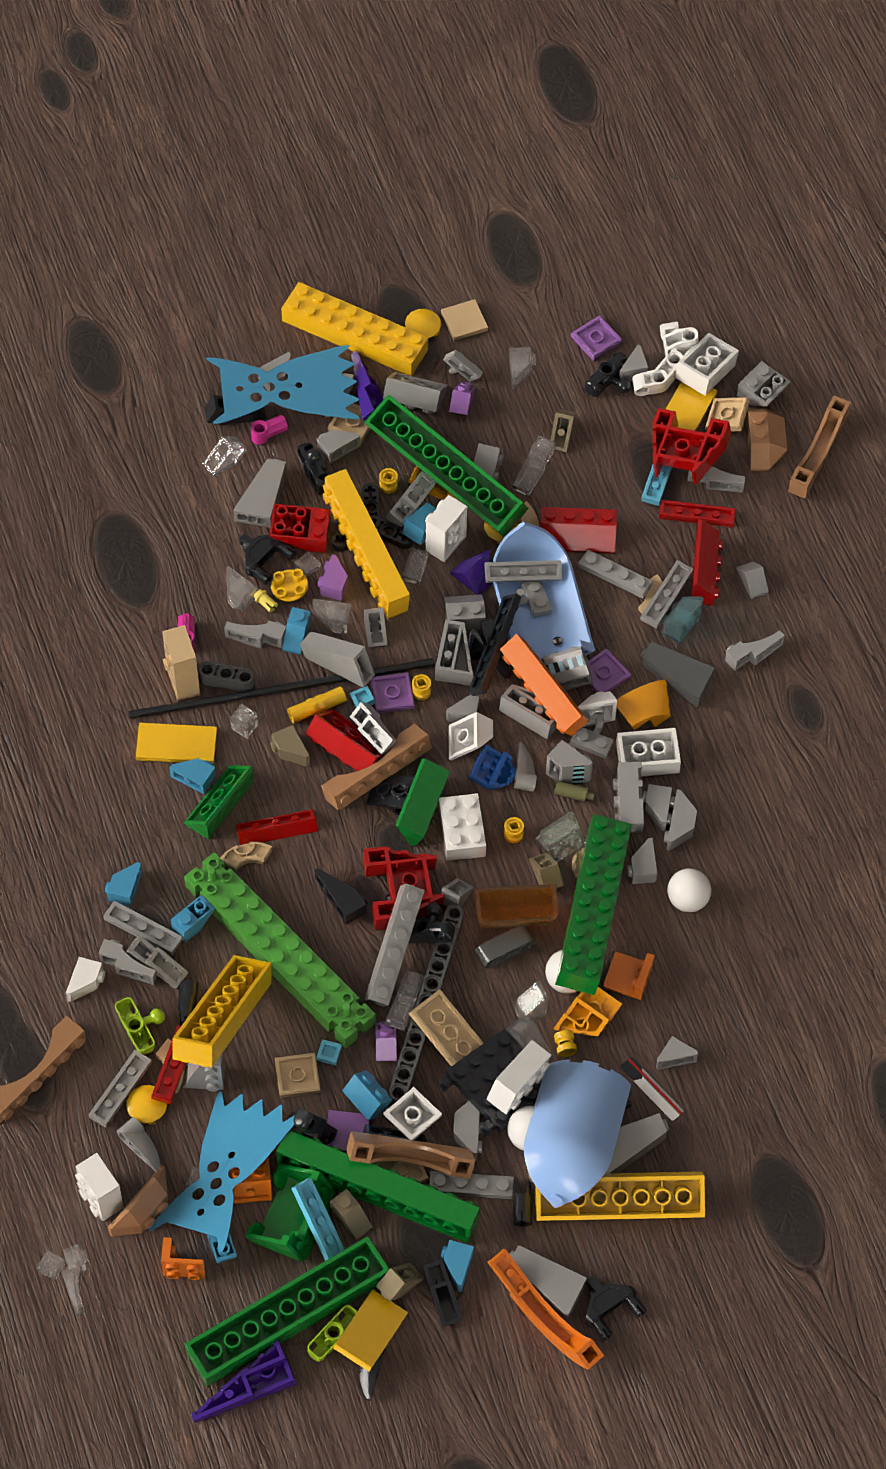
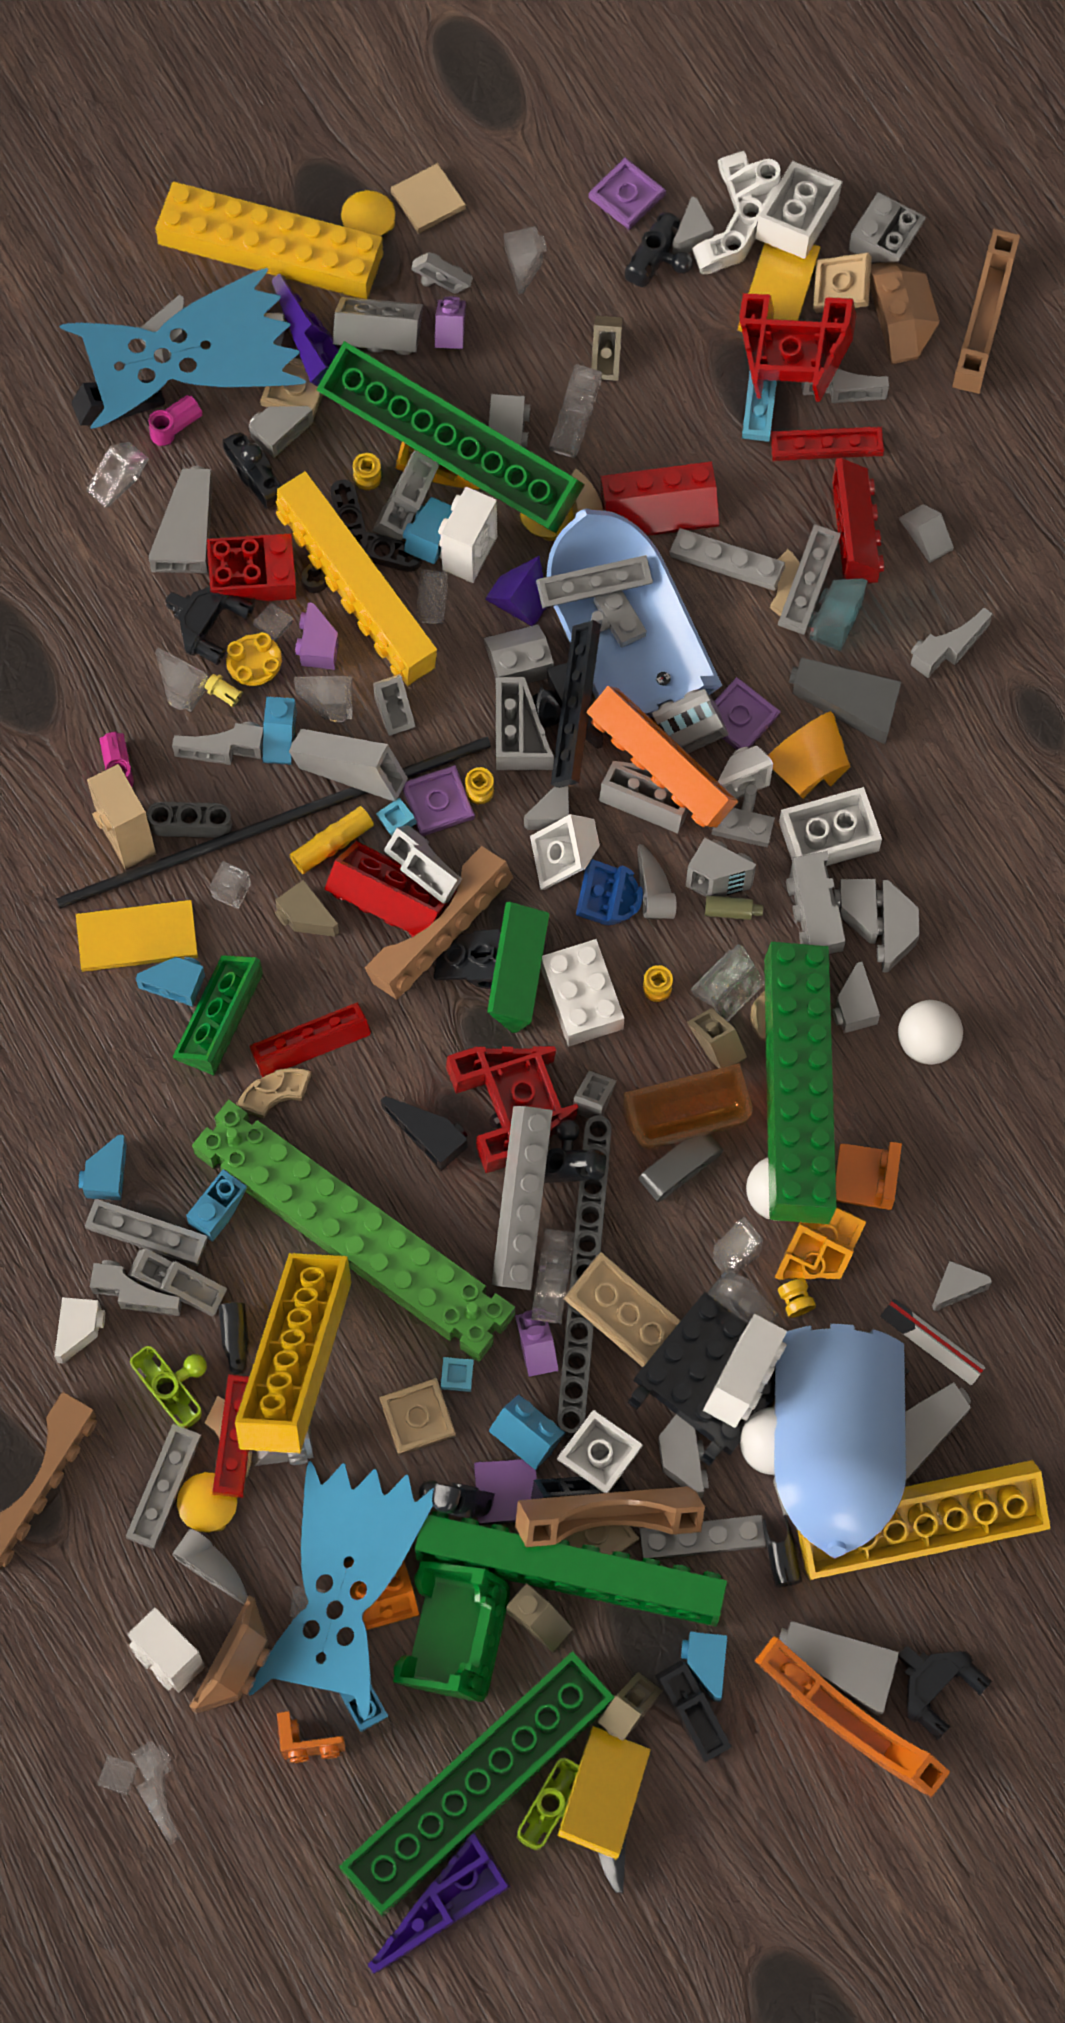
camera: 10 degrees left, 10 degrees up
(317, 1218) = (496, 1639): medium azure plate -> none

